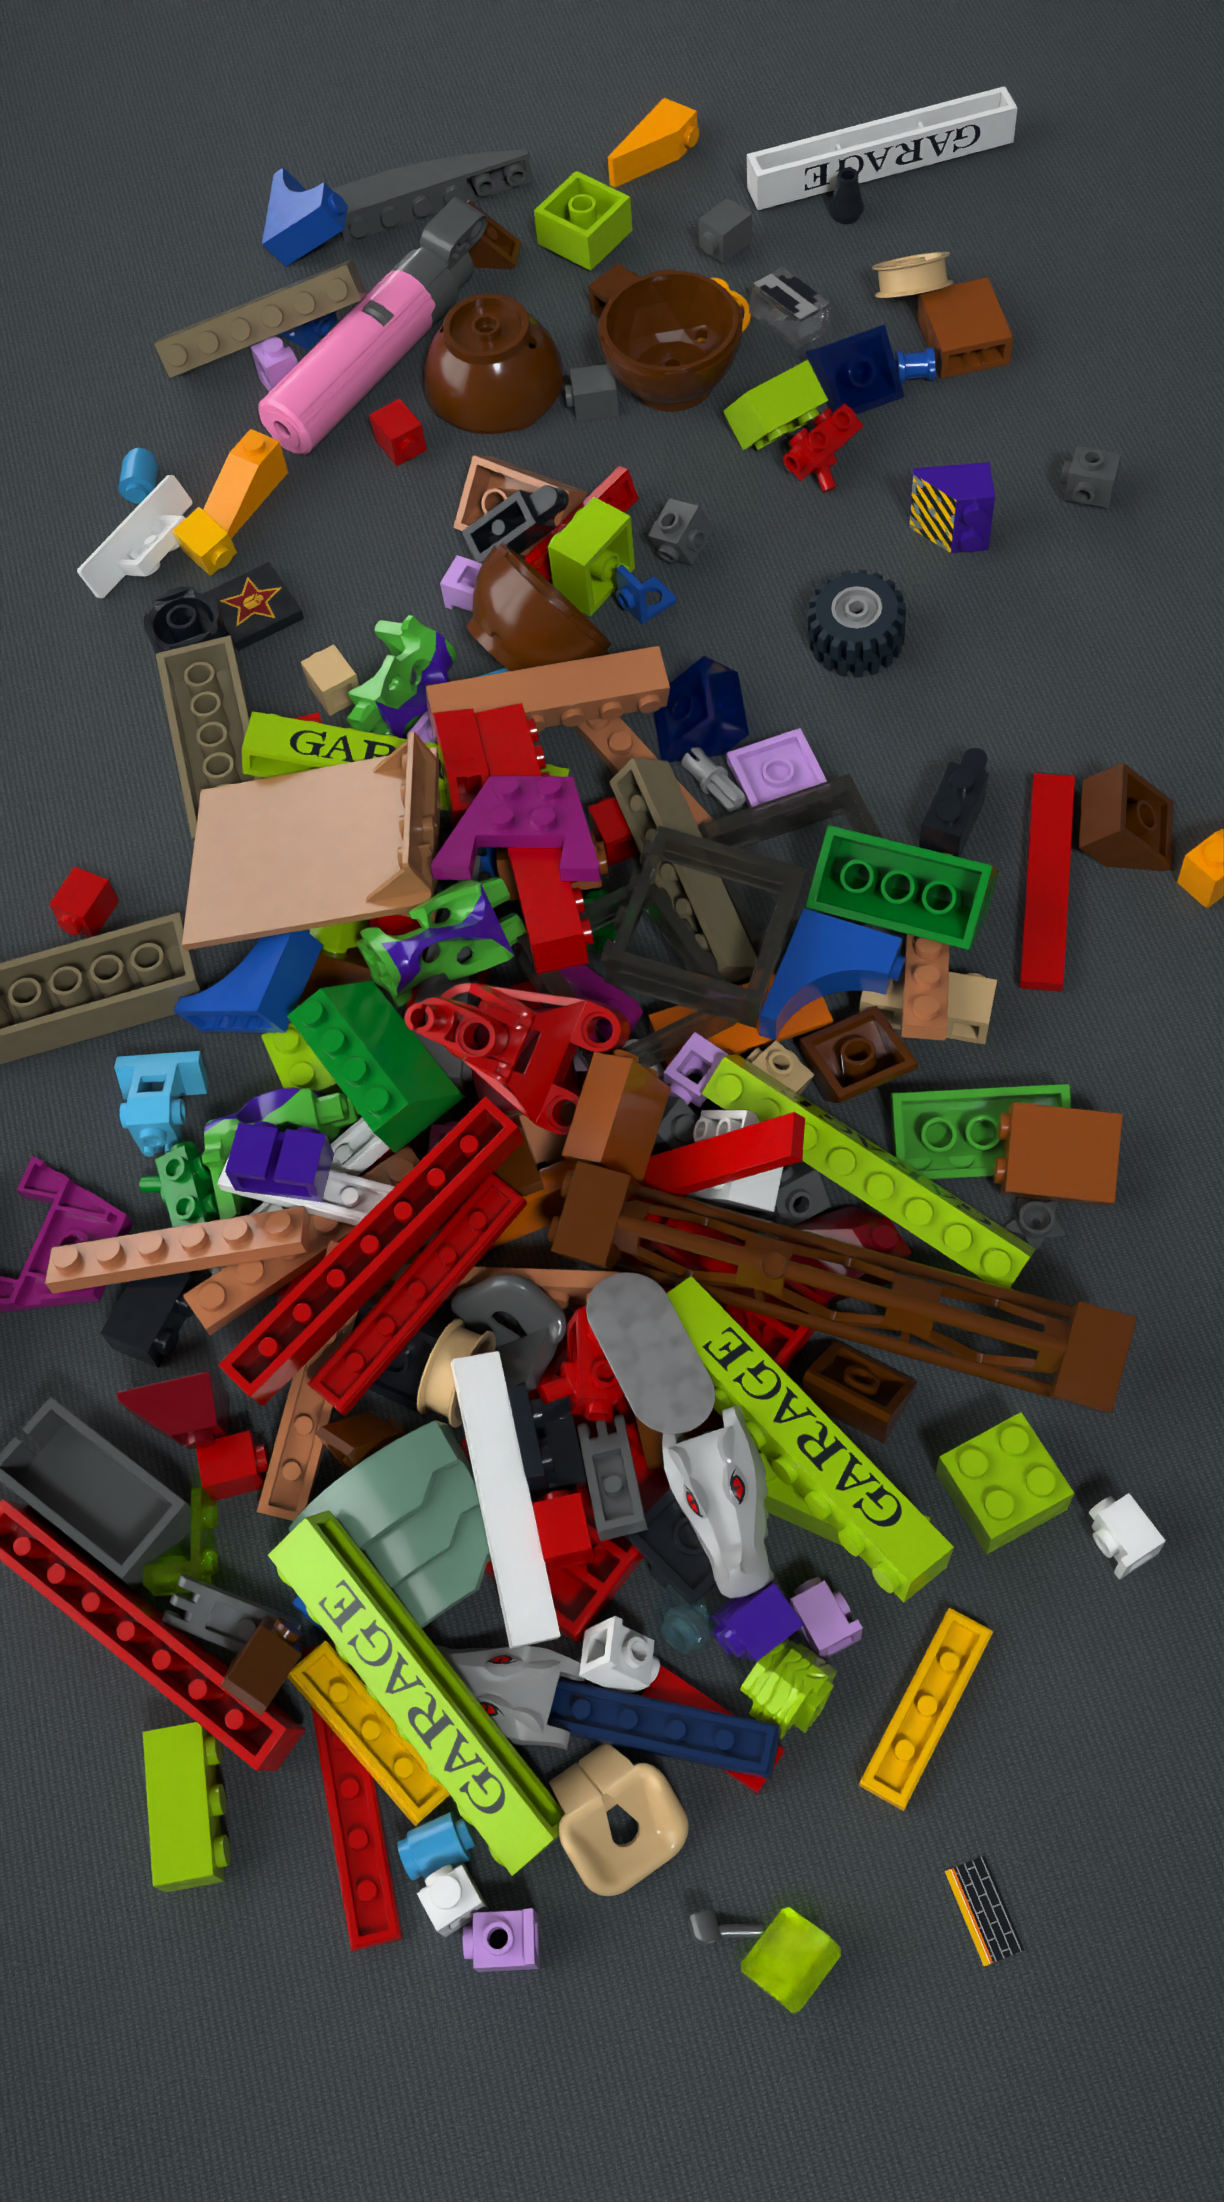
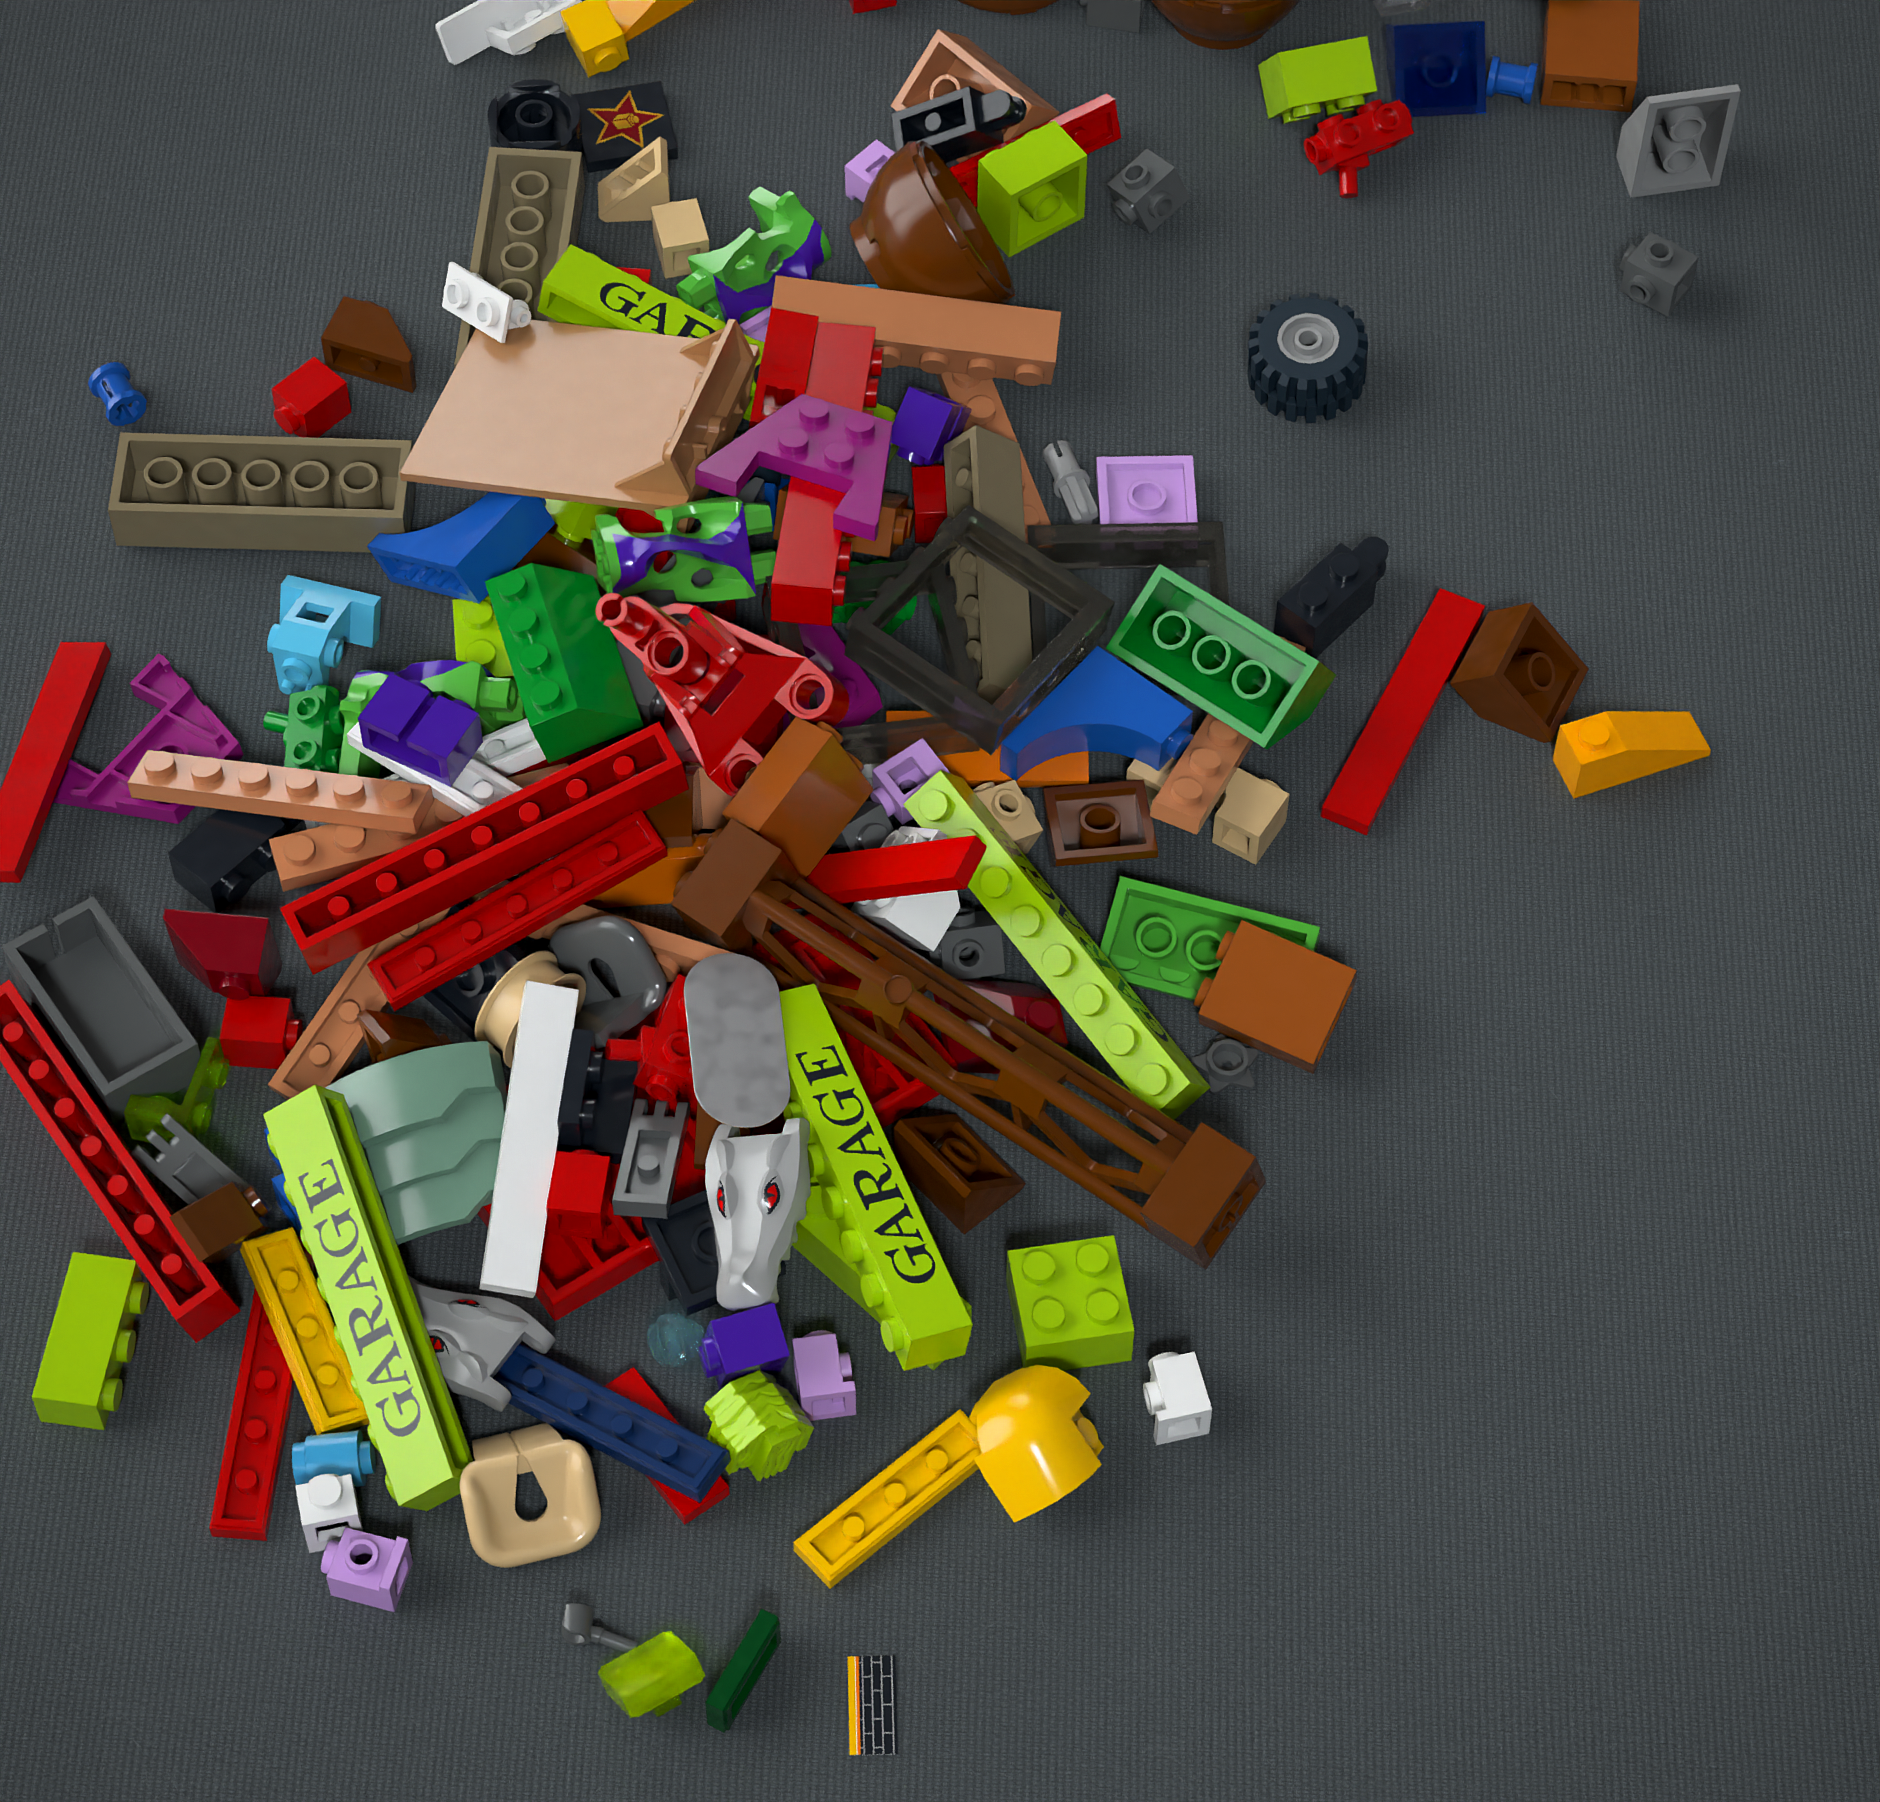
camera: 10 degrees right, 5 degrees down
(114, 843) = (368, 345): none -> reddish brown slope
(198, 782) = (482, 303): none -> white hinge
(281, 649) = (636, 186): none -> tan slope
(591, 768) = (927, 424): none -> dark purple piece
(627, 1657) = (590, 1339): white brick -> none
(633, 598) = (1062, 247): blue bracket -> none
(702, 712) = (1088, 403): clear blue slope -> none
(867, 1925) = (743, 1671): none -> dark green tile
(953, 505) = (1476, 257): dark purple slope -> none
(1030, 1619) = (1034, 1438): none -> yellow brick
(1065, 371) = (1677, 141): none -> light grey slope

